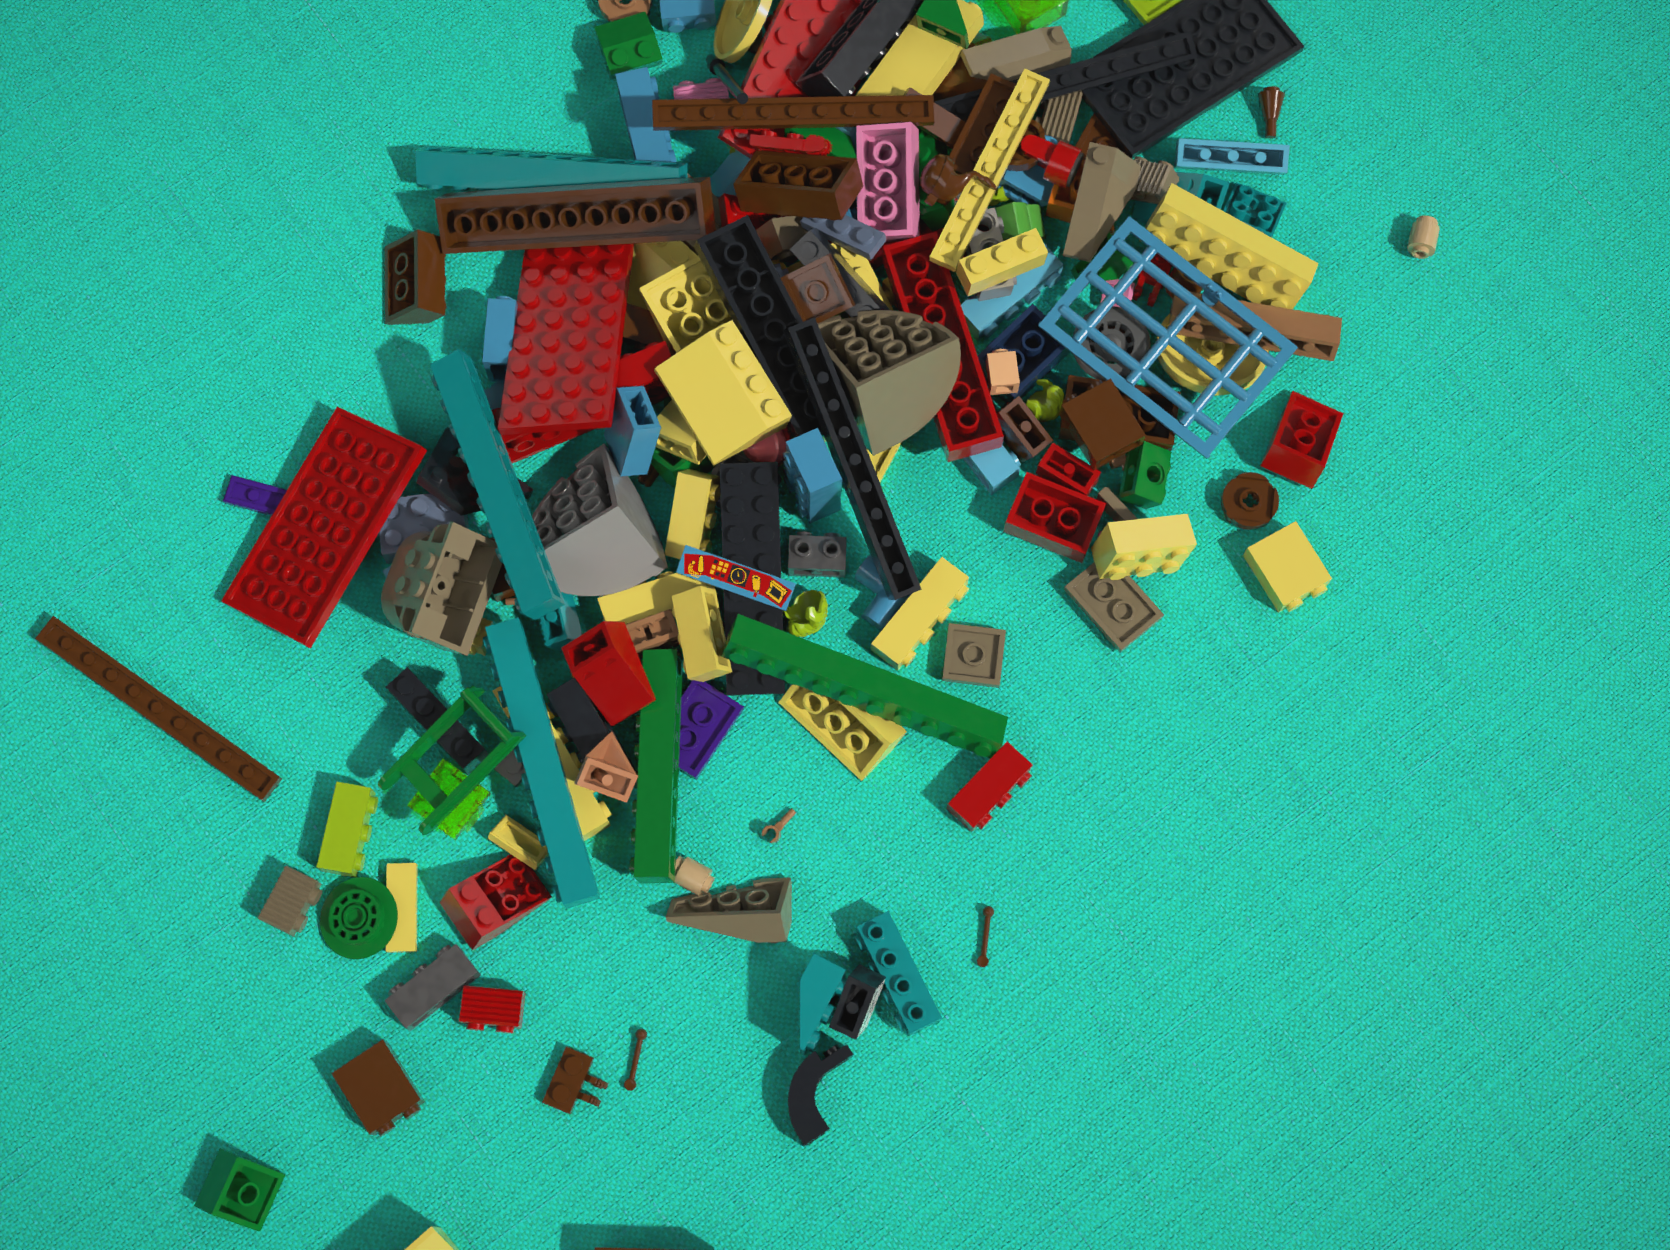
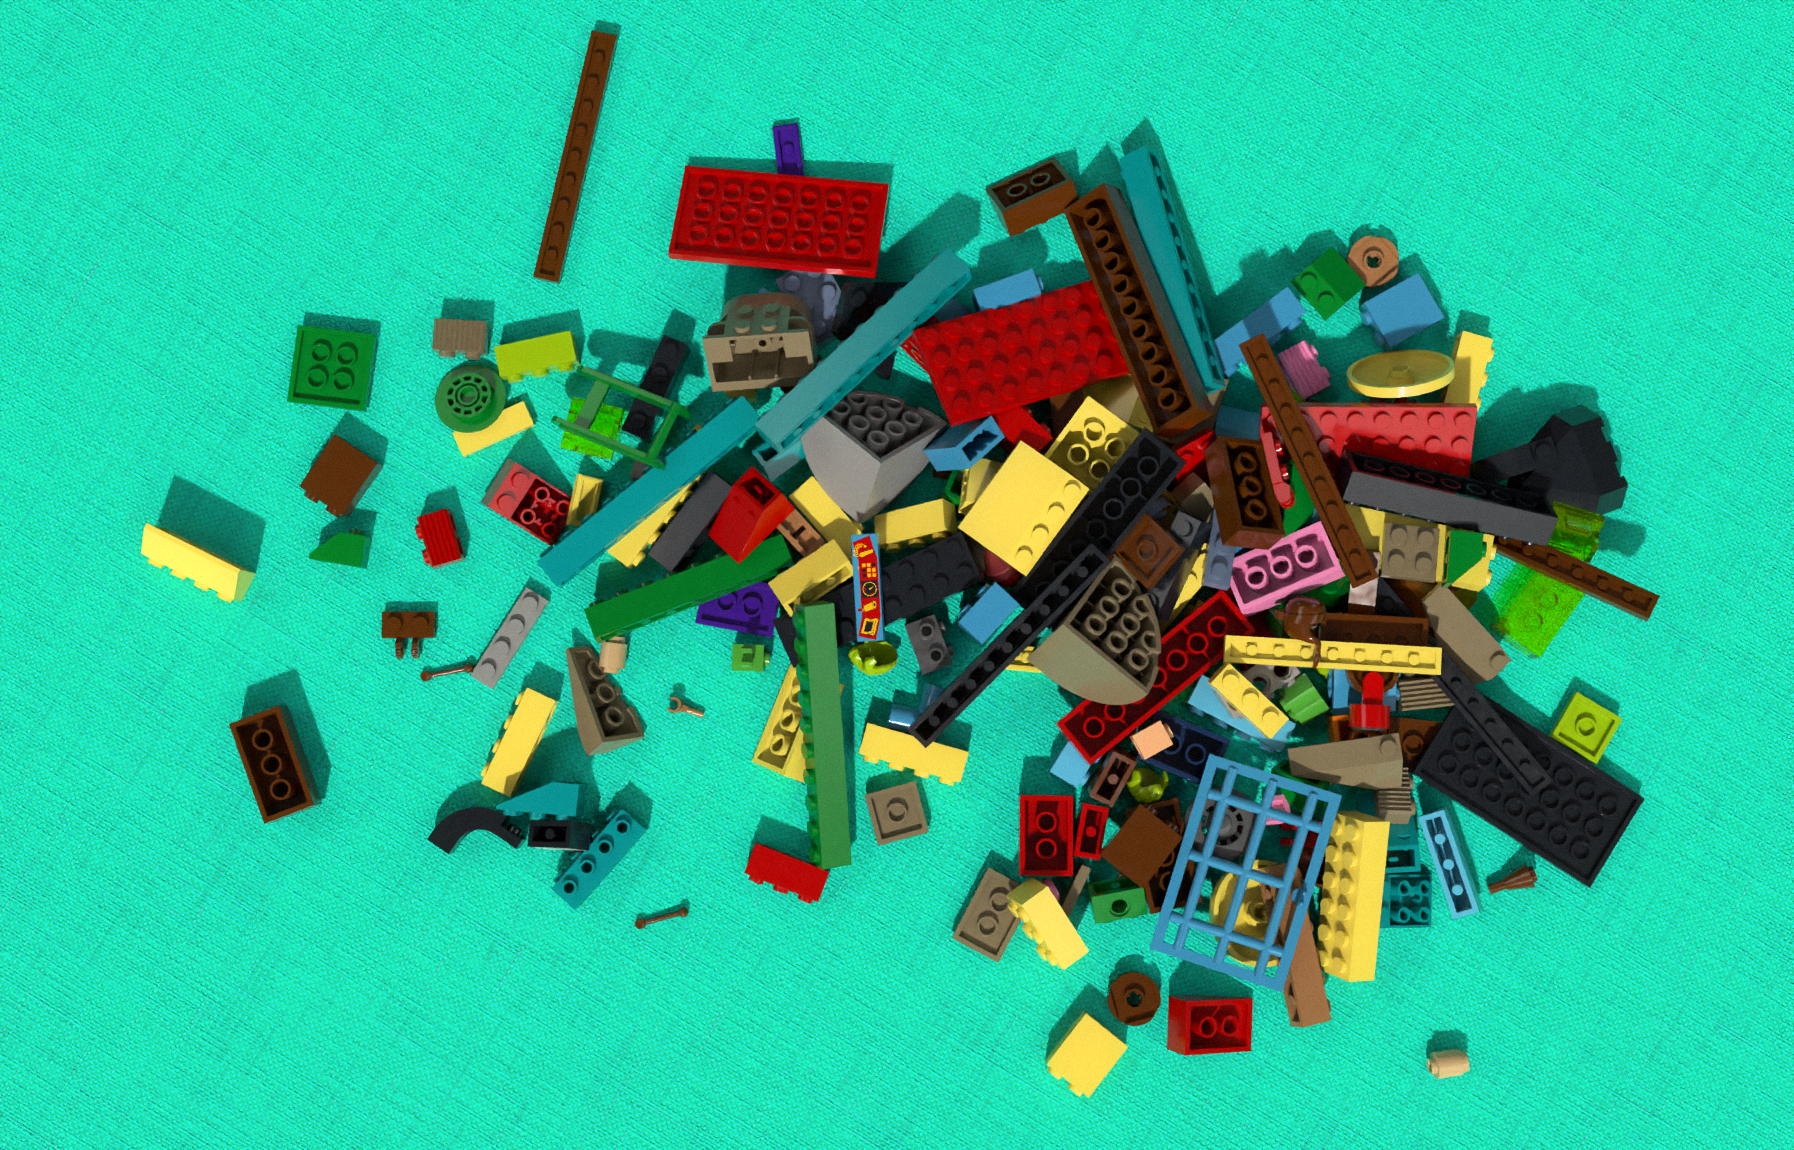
camera: 70 degrees right, 10 degrees up
(239, 1190) = (218, 402): green slope -> none
(258, 1053) = (332, 368): none -> green plate
(431, 986) = (438, 482): flat silver brick -> none
(458, 1115) = (345, 549): none -> green slope
(608, 770) = (664, 550): nougat slope -> none
(628, 978) = (509, 638): none -> light grey plate
(717, 67) = (1338, 371): black bar -> none
(742, 1008) = (520, 741): none -> light yellow brick
(755, 737) = (750, 657): none -> bright green brick
(921, 63) = (1409, 552): none -> dark tan plate

